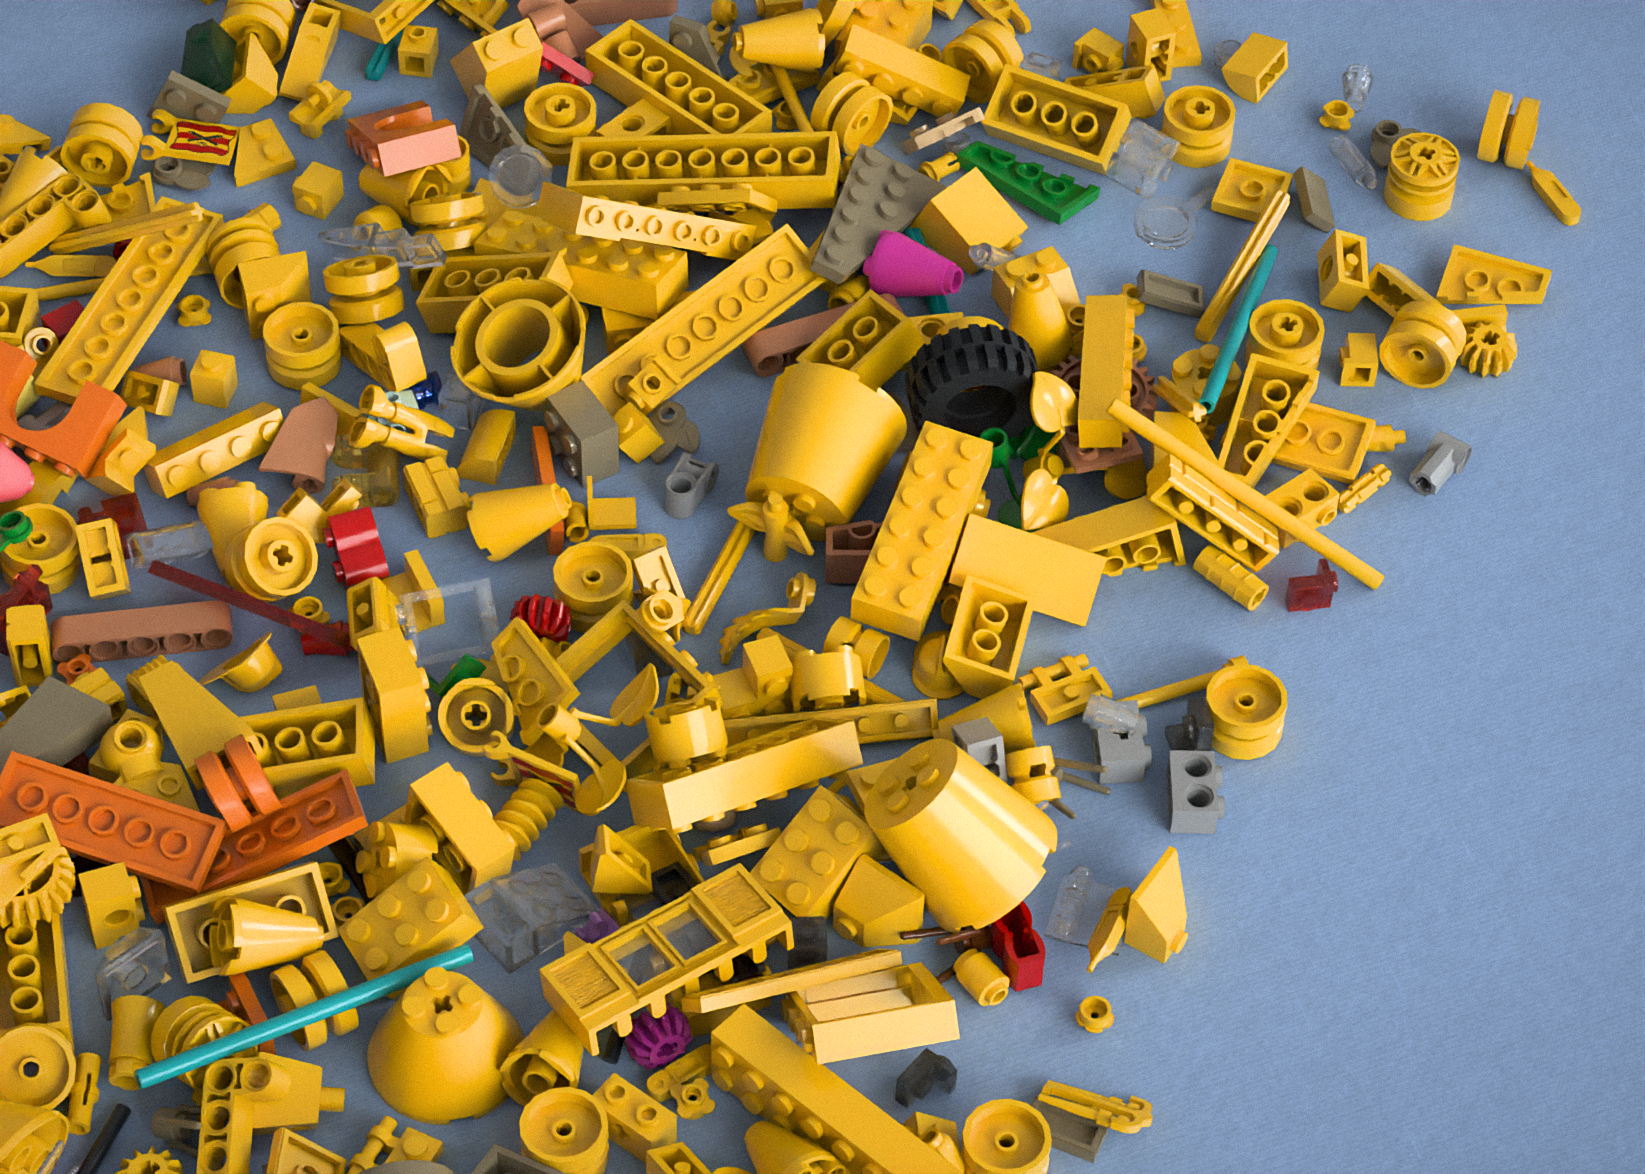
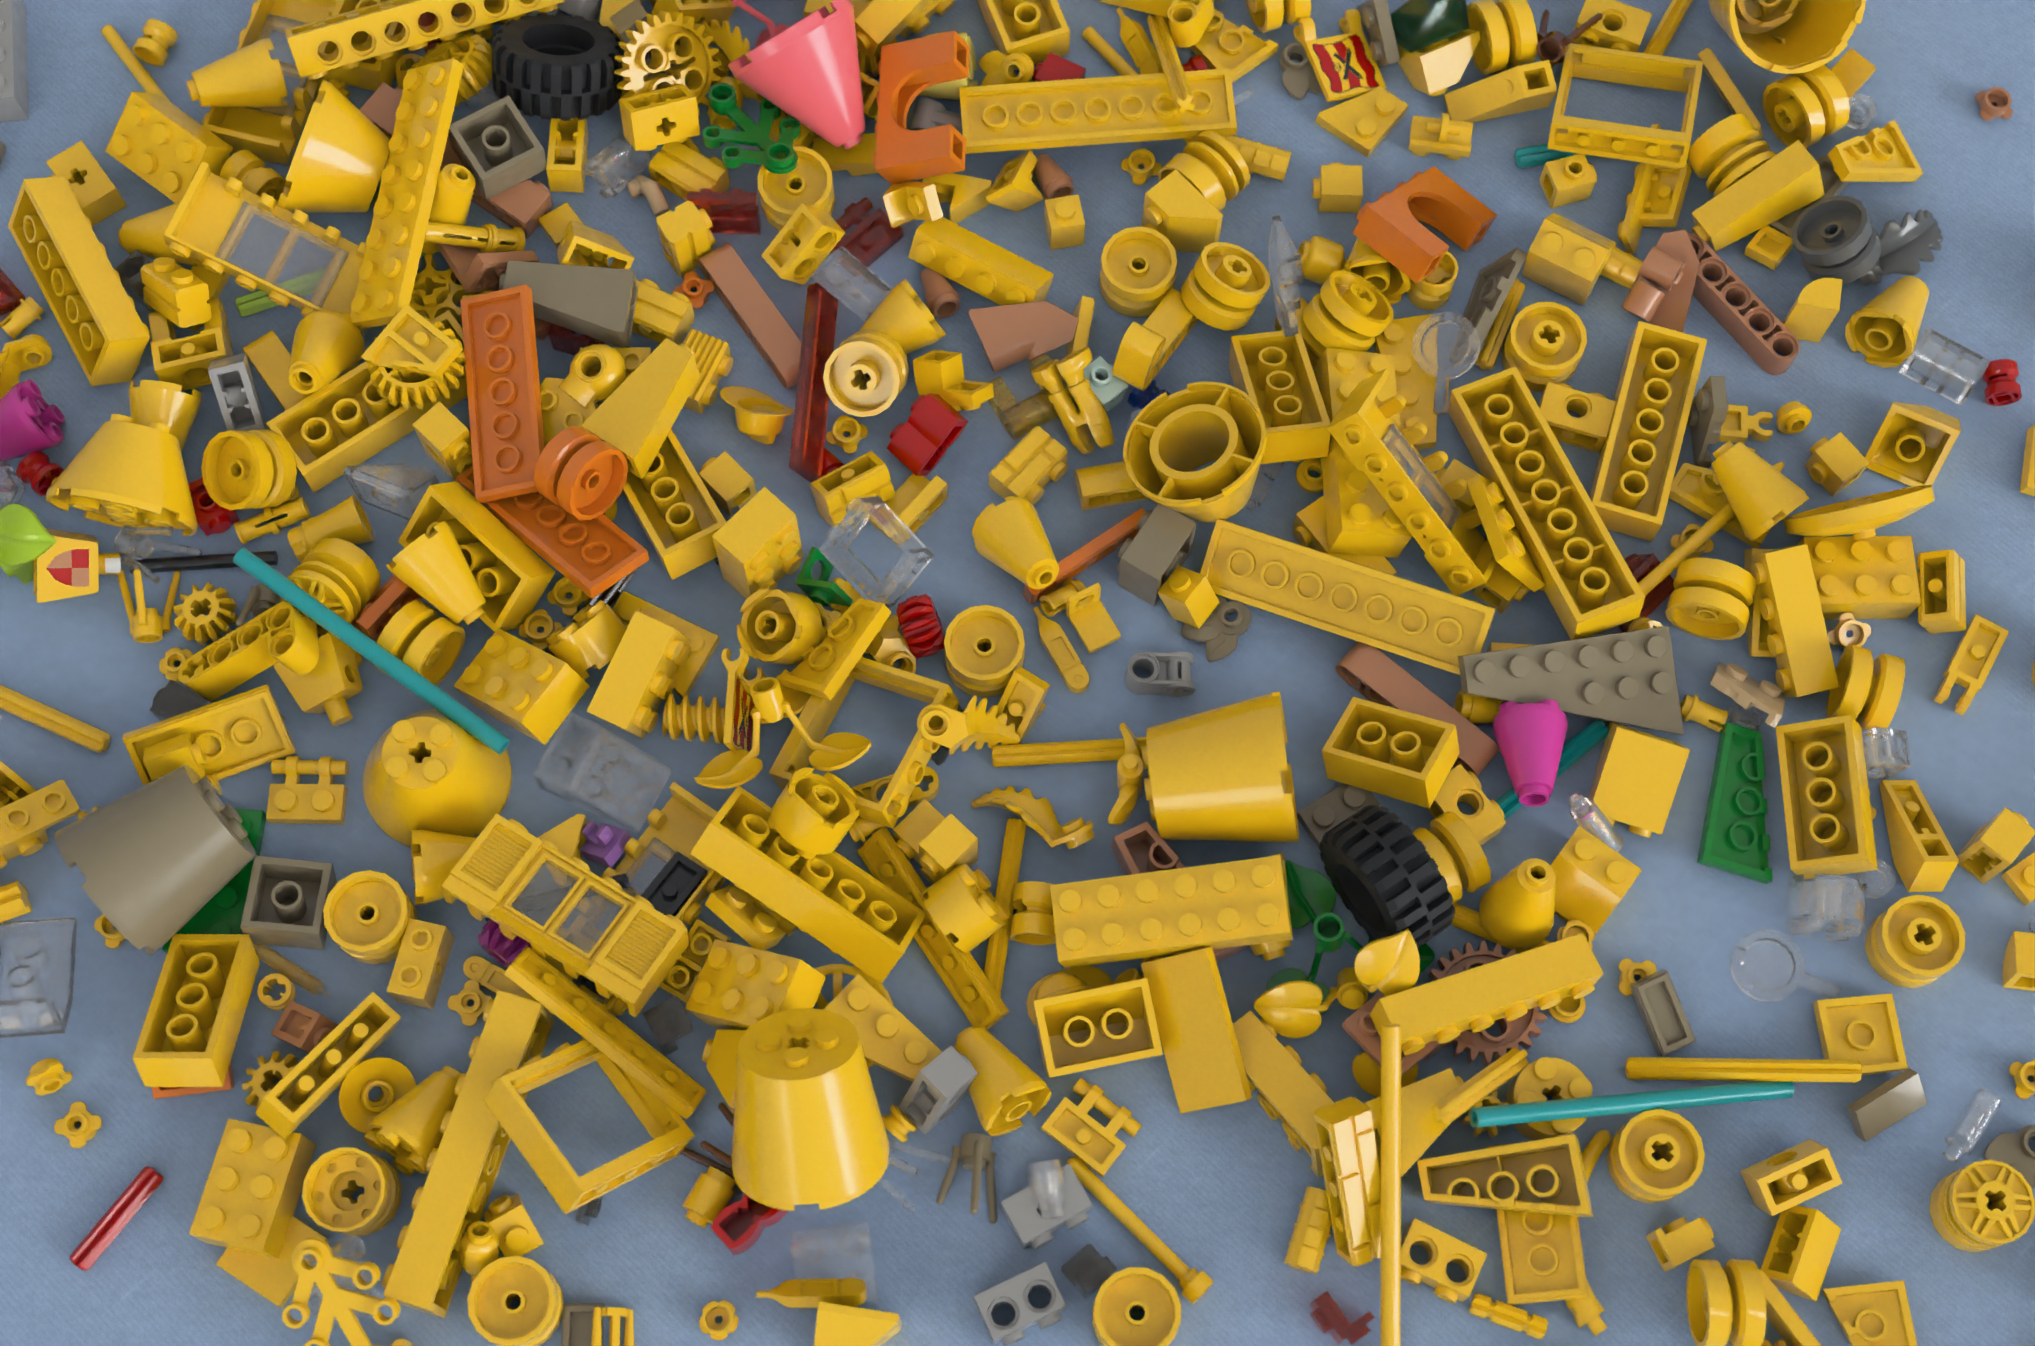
camera: 65 degrees right, 20 degrees up
(563, 67) = (1608, 293): plate -> none
(618, 866) = (661, 826): yellow slope -> none
(660, 376) = (1255, 585): yellow brick -> none
(1040, 762) = (944, 1144): yellow wheel -> none
(1098, 52) = (1961, 798): yellow brick -> none

